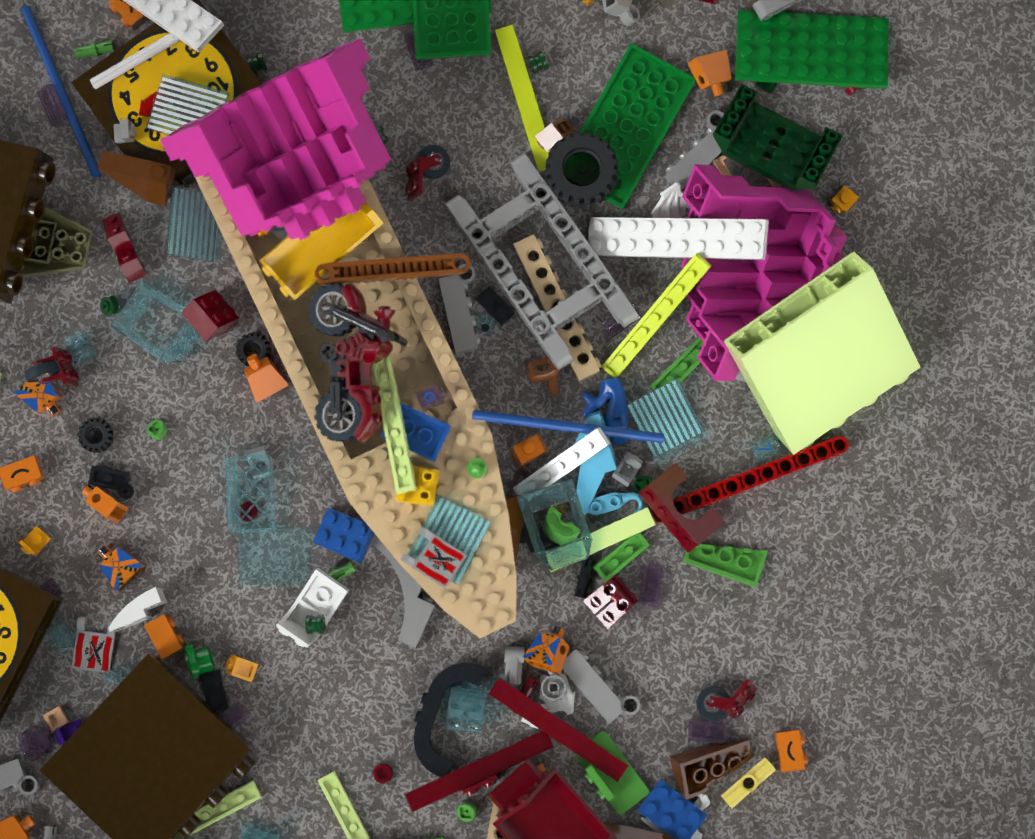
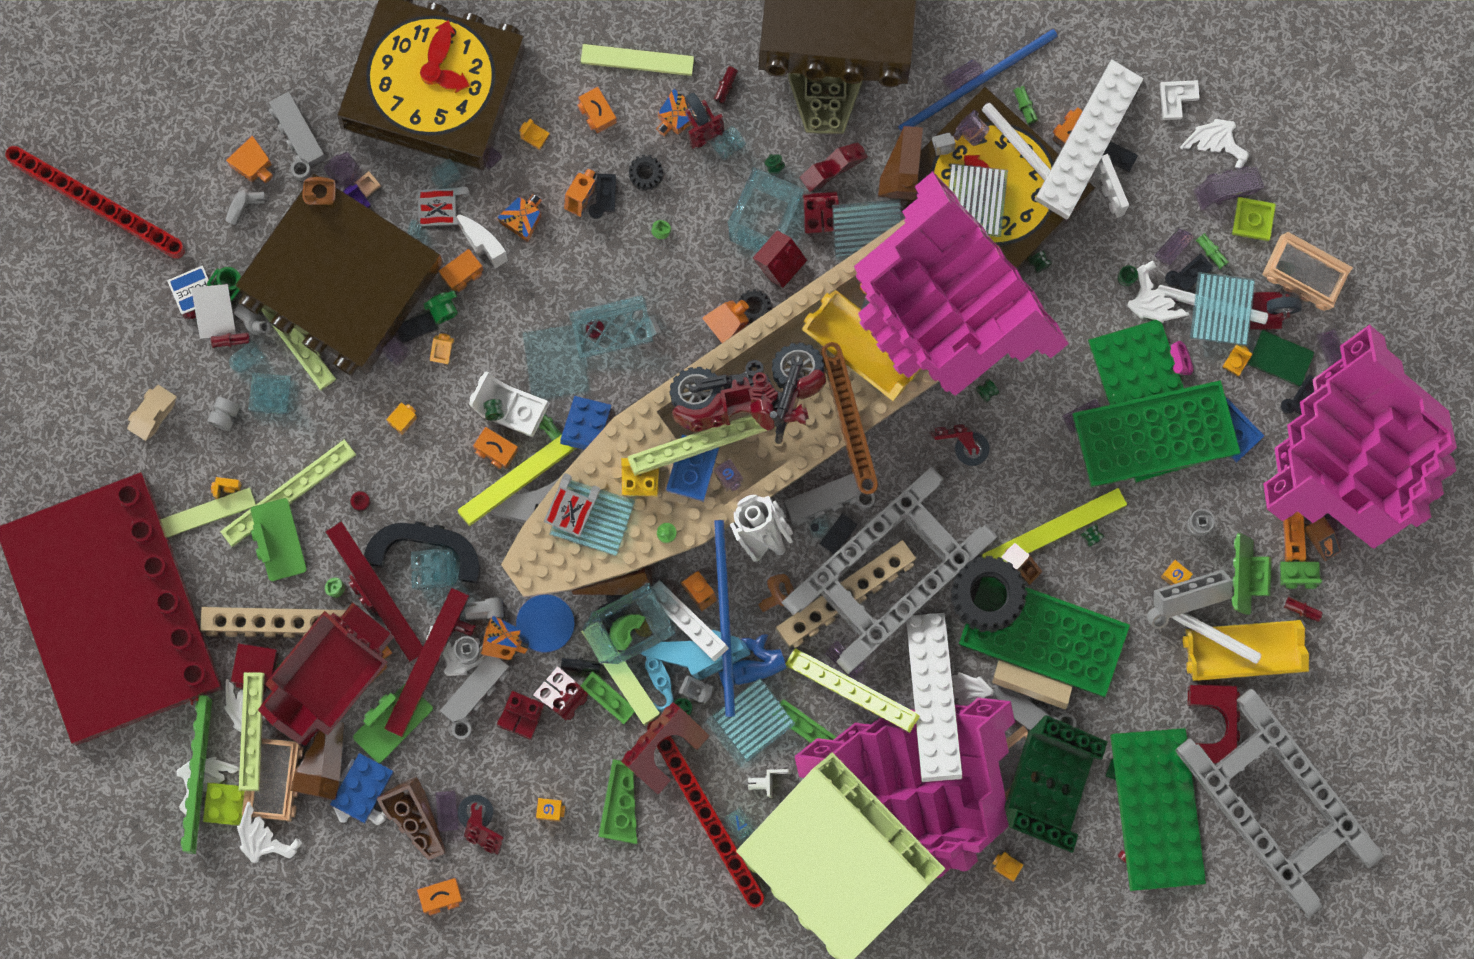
camera: 70 degrees right, 5 degrees down
(18, 340) = (726, 84): none -> dark red axle
(67, 776) = (310, 198): none -> dark orange piece
(114, 101) = (972, 129): none -> piece
(168, 269) = (813, 206): none -> dark red hips
(305, 718) = (402, 418): none -> light orange brick
(352, 629) = (495, 448): none -> orange brick
(391, 615) = (514, 481): none -> neon yellow tile
(481, 376) = (760, 526): none -> white piece
(538, 606) = (545, 623): none -> blue tile
(616, 644) = (518, 706): none -> dark red hips
(650, 585) = (583, 732): clear purple plate -> none
(674, 145) = (1032, 684): none -> tan tile
(711, 71) = (1114, 710): orange torso -> none
(722, 630) = (550, 809): none -> light orange brick
(728, 416) = (767, 782): none -> white bracket
(758, 773) = (392, 850): light yellow piece -> none

